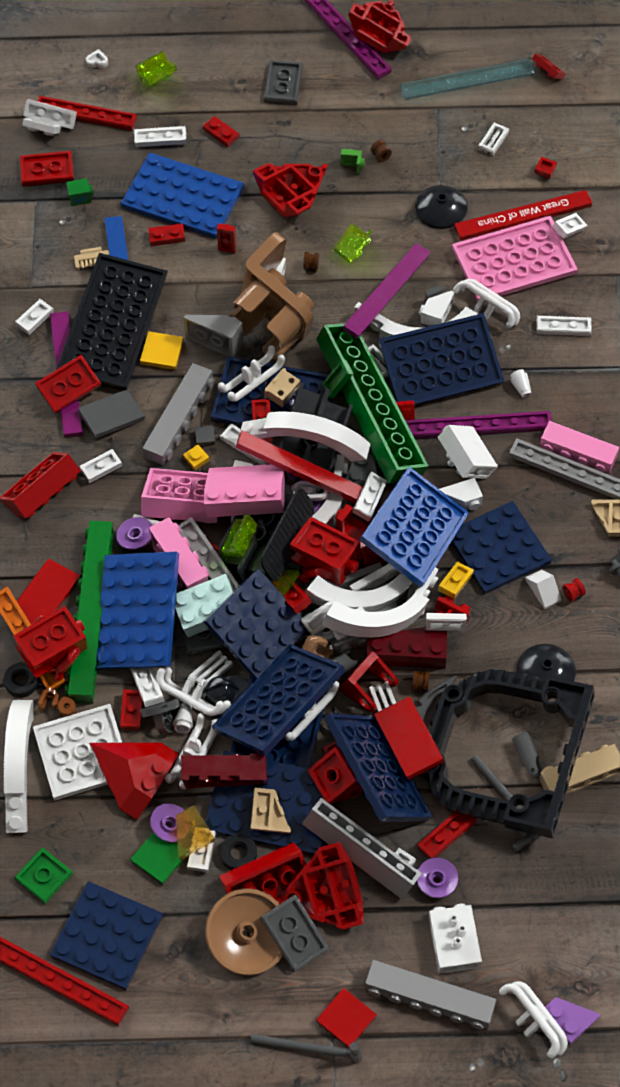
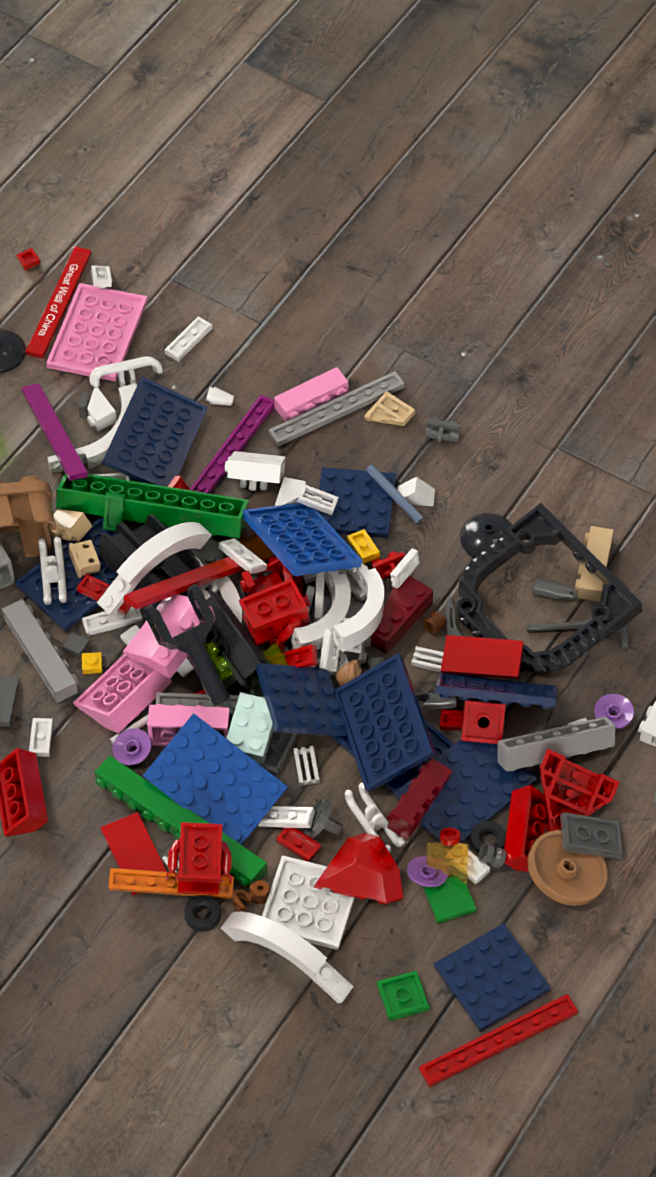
camera: 55 degrees left, 5 degrees down
(183, 721) = (340, 810): white cone -> none
(184, 694) = (328, 790): white piece -> none
(210, 819) = (449, 836): none -> red tile
(217, 864) = (492, 855): none -> dark grey wheel
(225, 689) = (336, 765): black piece -> none
(234, 507) = (192, 643): none -> black piece
(267, 813) = (475, 791): tan wing -> none
(305, 357) = (70, 525): none -> tan brick
(355, 692) = (399, 644): red hose -> none
(445, 835) = (580, 685): red plate -> none
(475, 531) = (316, 501): none -> white tile
(526, 570) = (394, 493): none -> sand blue piece
(574, 590) = (435, 474): red wheel -> none

